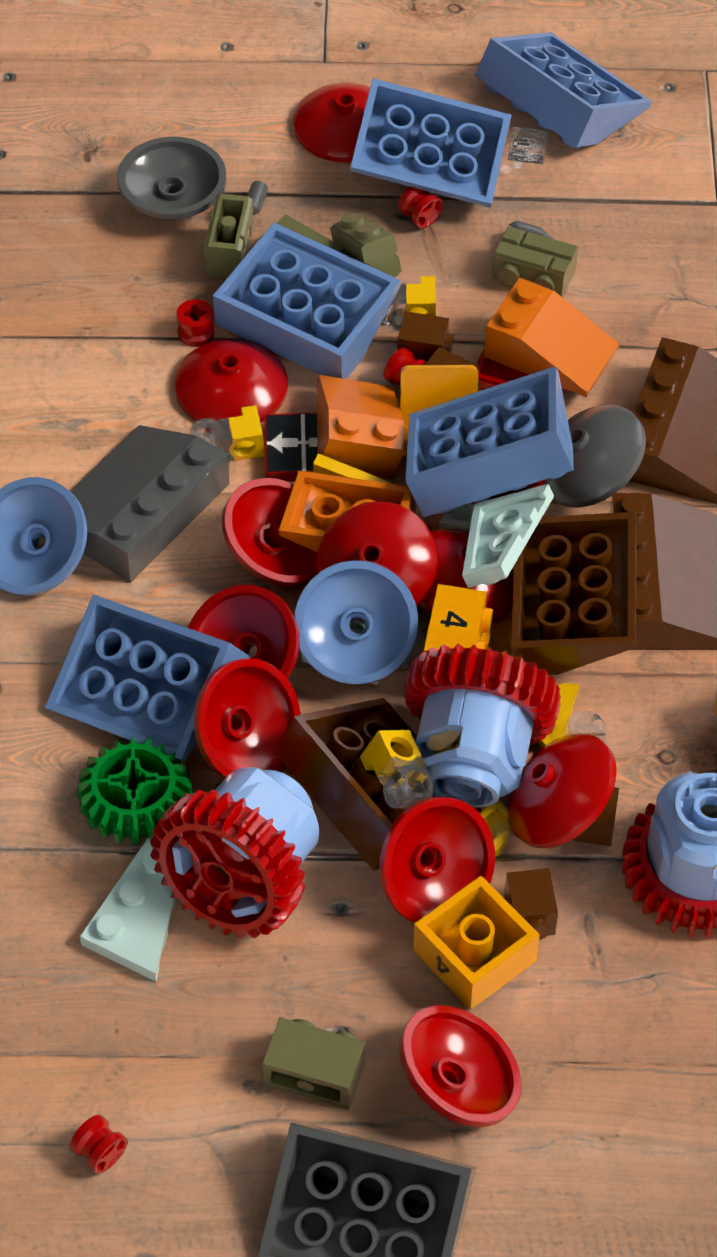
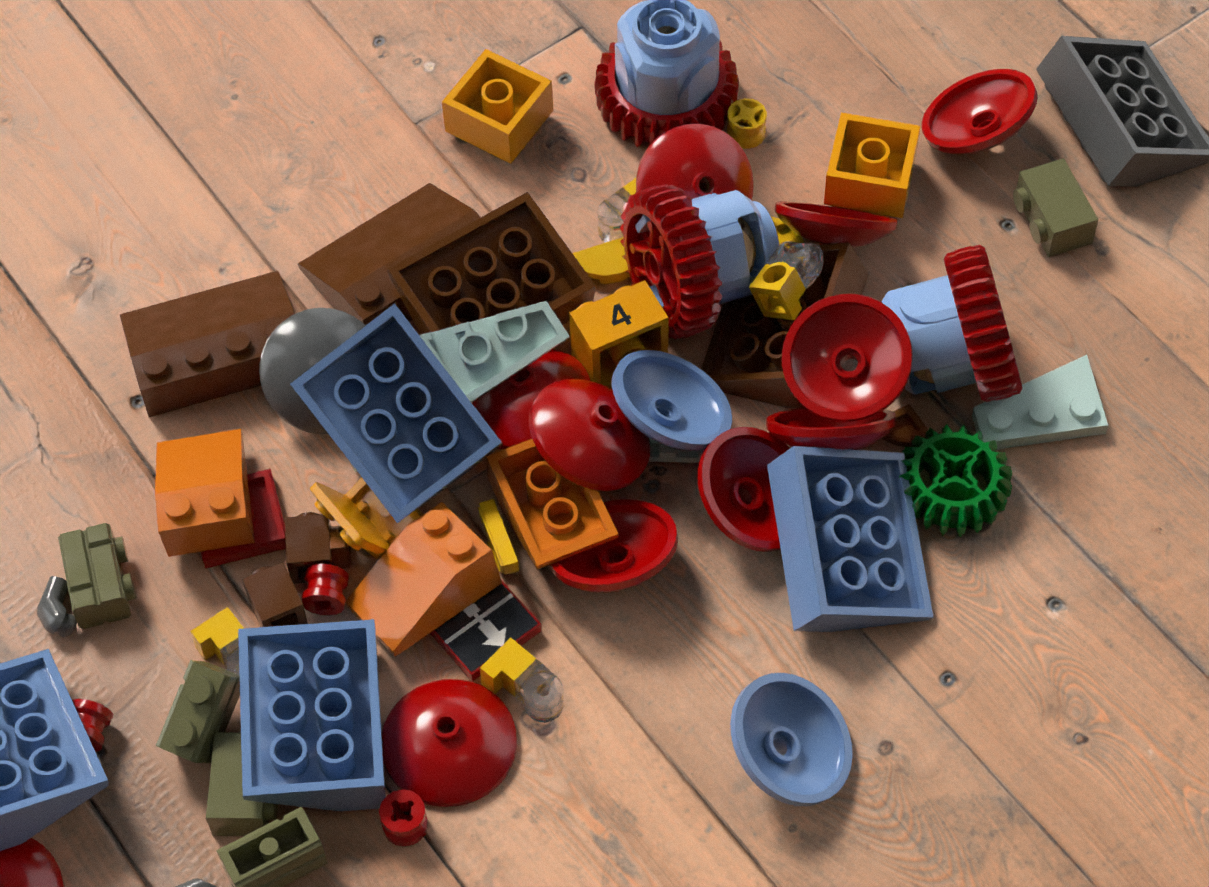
camera: 125 degrees left, 5 degrees up
(147, 496) = (653, 707): dark grey slope -> none
(272, 727) = (843, 330): none -> red dish
(533, 898) = (800, 162): reddish brown brick -> none
(614, 887) = (751, 115): none -> yellow wheel

